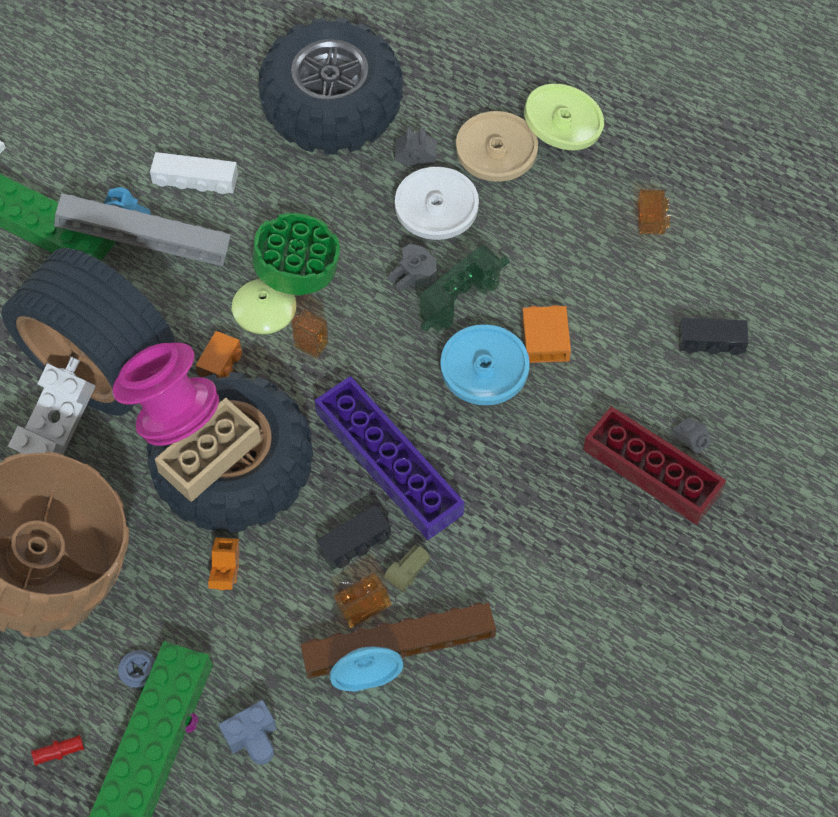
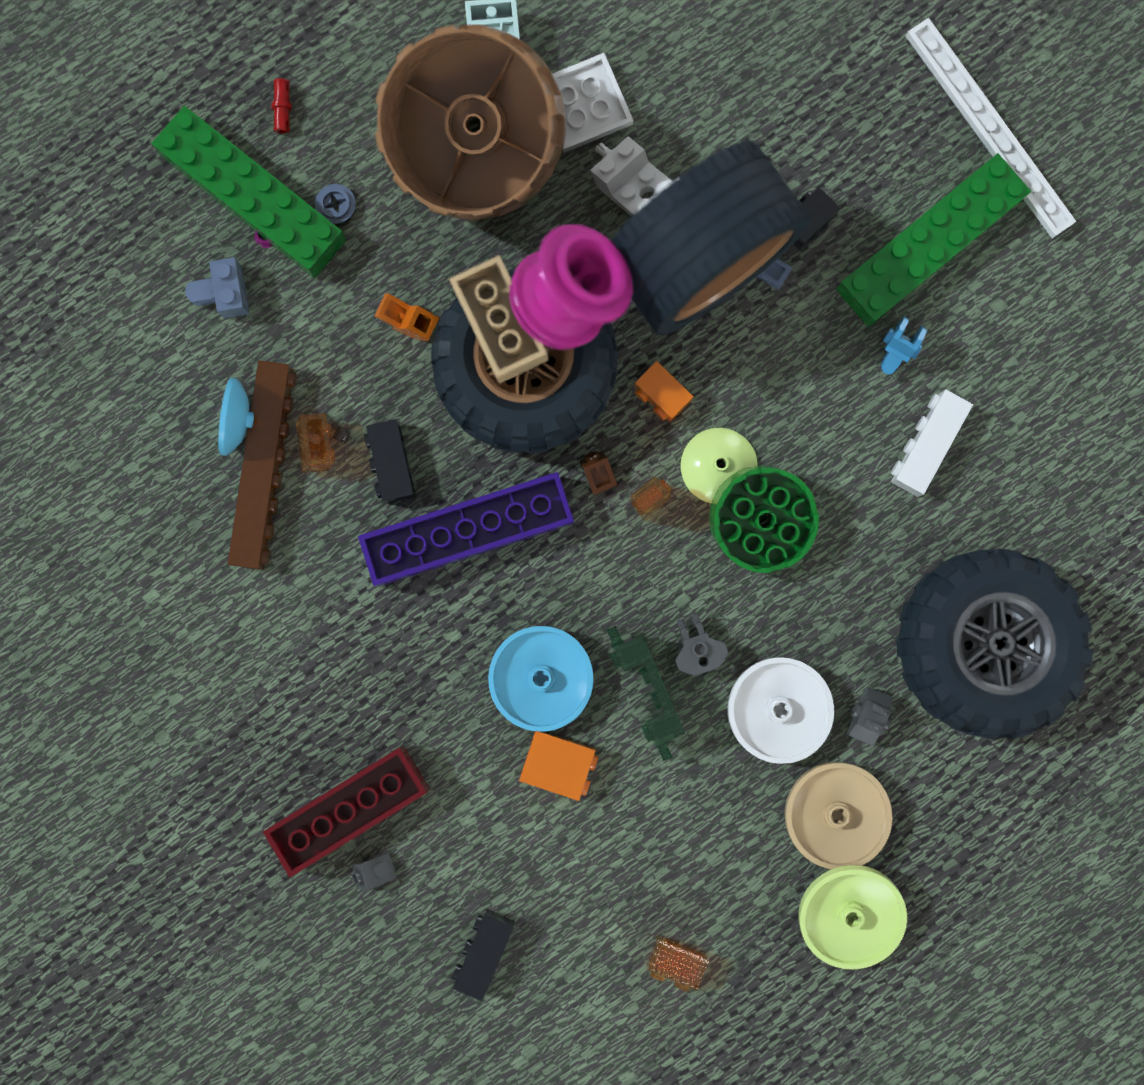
camera: 115 degrees right, 25 degrees up
(141, 229) = (858, 351): light grey brick -> none
(300, 383) = (598, 472): none -> reddish brown bracket
(405, 571) = (335, 502): olive piece -> none

